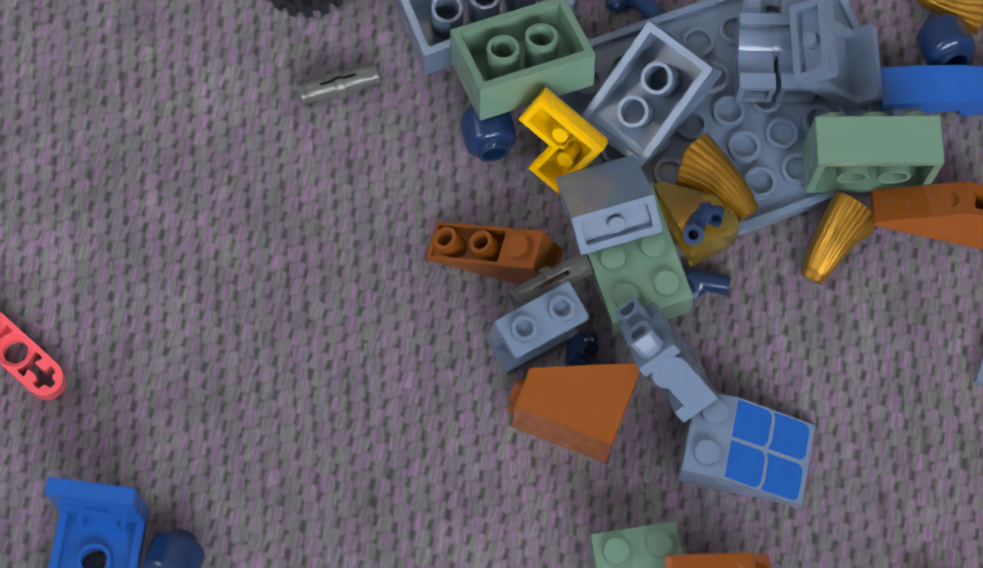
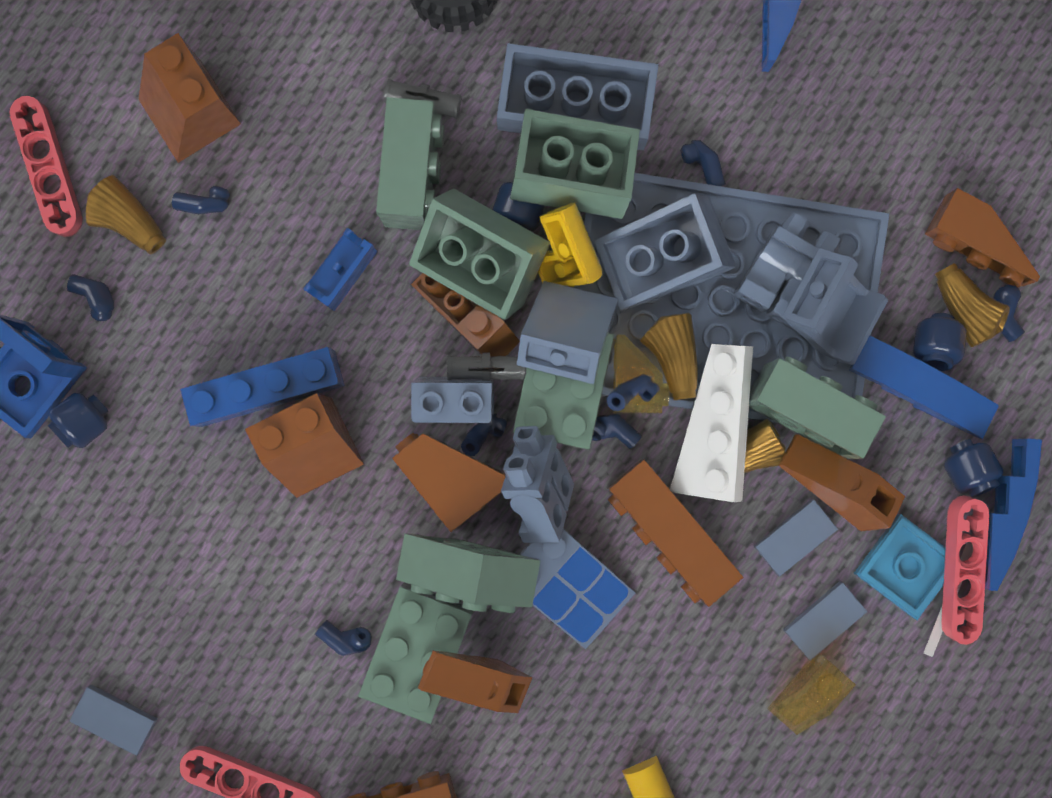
camera: 35 degrees right, 15 degrees up
(100, 340) = (116, 208): none -> pearl gold piece
(112, 198) = (183, 98): none -> dark orange slope
(122, 433) = (96, 293): none -> dark blue arm
(175, 293) = (202, 205): none -> dark blue arm
(342, 426) = (262, 387): none -> blue brick
(350, 278) = (340, 269): none -> blue hinge
(366, 142) = (409, 162): none -> sand green brick
(419, 452) = (305, 445): none -> dark orange slope
(479, 185) = (478, 253): none -> sand green brick
(648, 474) = (468, 573): none -> sand green brick
(798, 226) = (716, 435): none -> white wing
(816, 345) = (675, 534): none -> dark orange brick
(930, 290) = (795, 537): none -> sand blue tile

